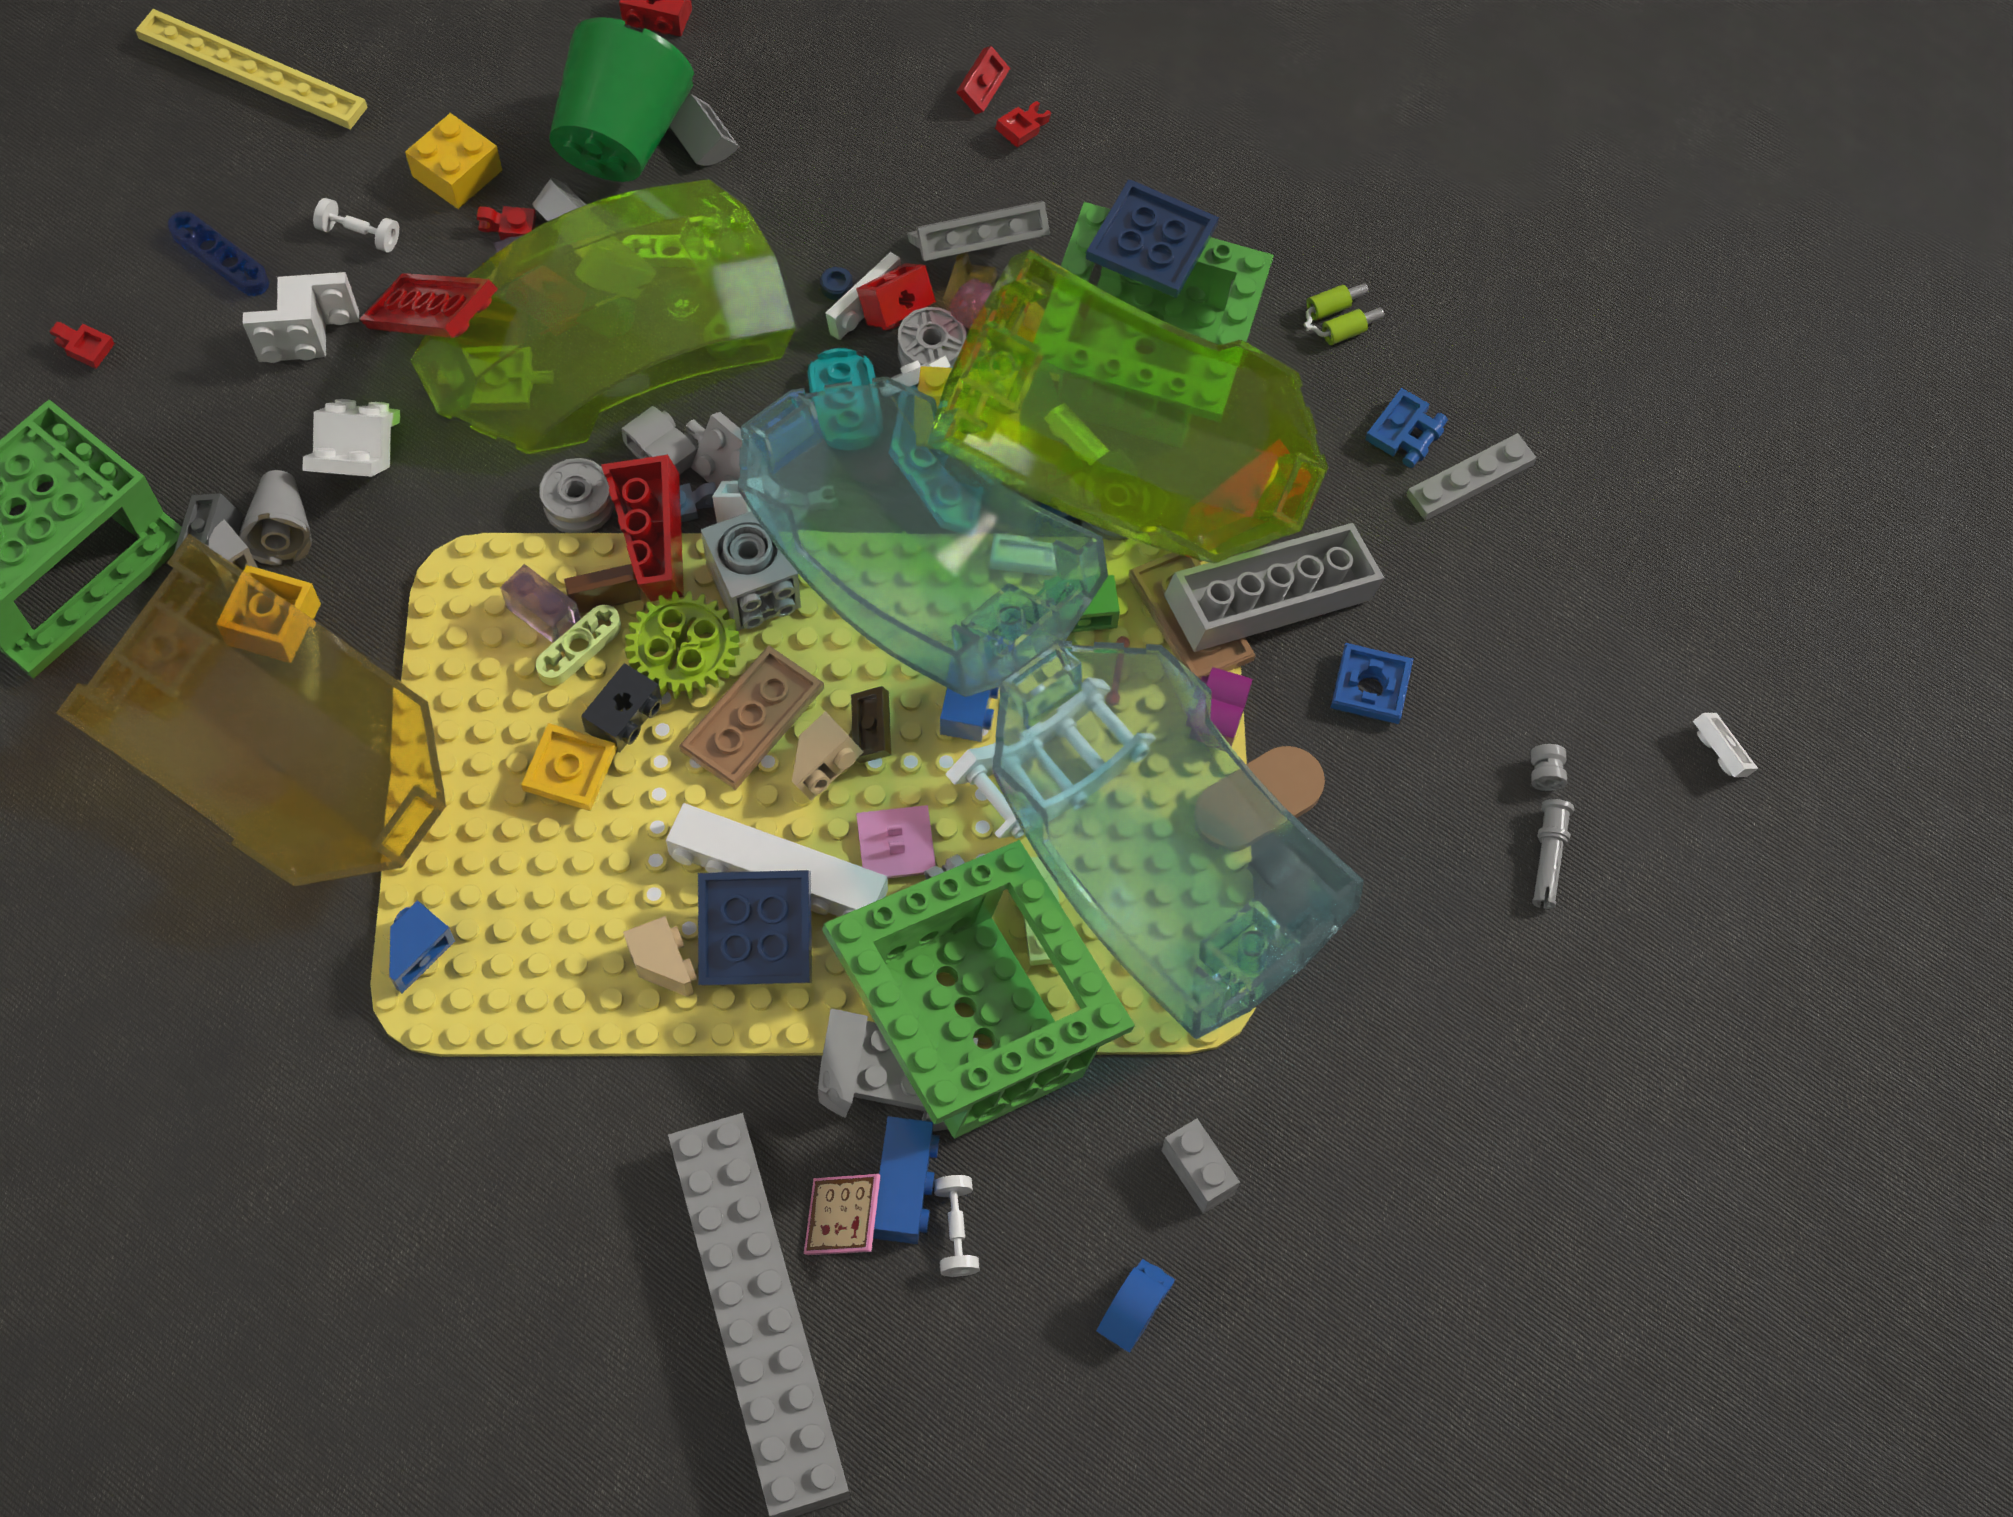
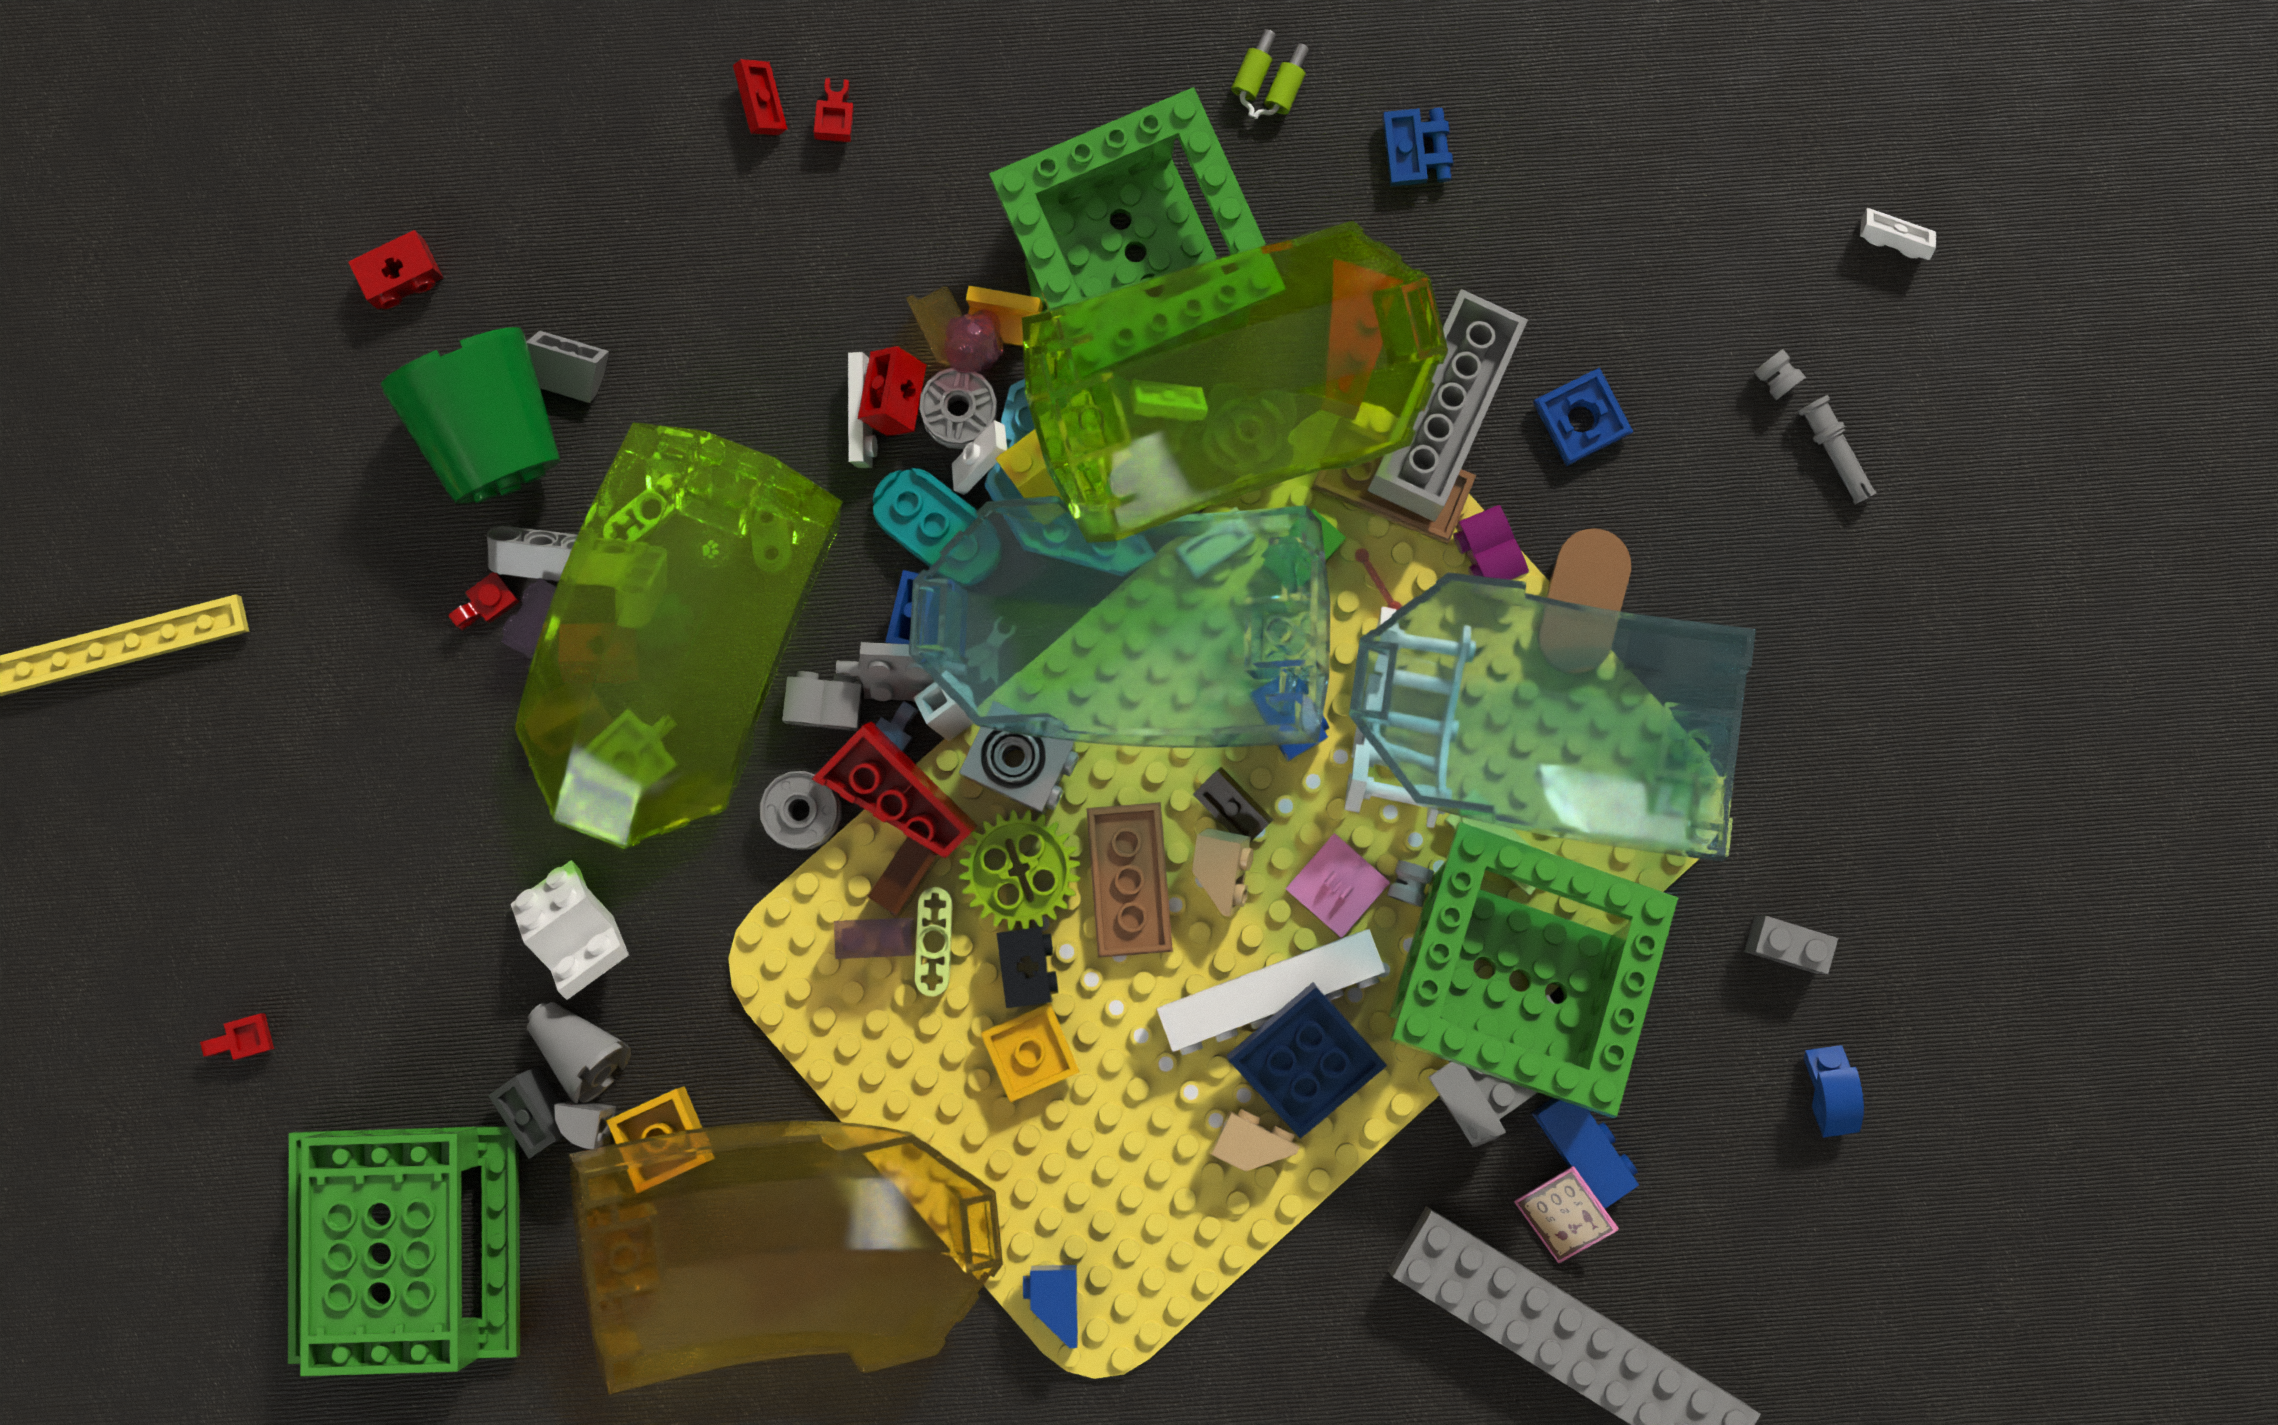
camera: 40 degrees left, 20 degrees up
(218, 253) = (263, 852): clear blue beam -> none
(301, 317) = (410, 857): white bracket -> none
(327, 215) = (321, 736): white wheel -> none
(429, 305) = (524, 763): red plate -> none
(454, 160) = (378, 586): yellow brick -> none
(836, 282) = (820, 415): dark blue tile -> none
(952, 1187) = (1681, 1174): white wheel -> none
(981, 231) = (920, 263): light grey fence -> none
(1152, 238) = (1087, 166): dark blue plate -> none
(1471, 476) = (1504, 147): light grey plate -> none

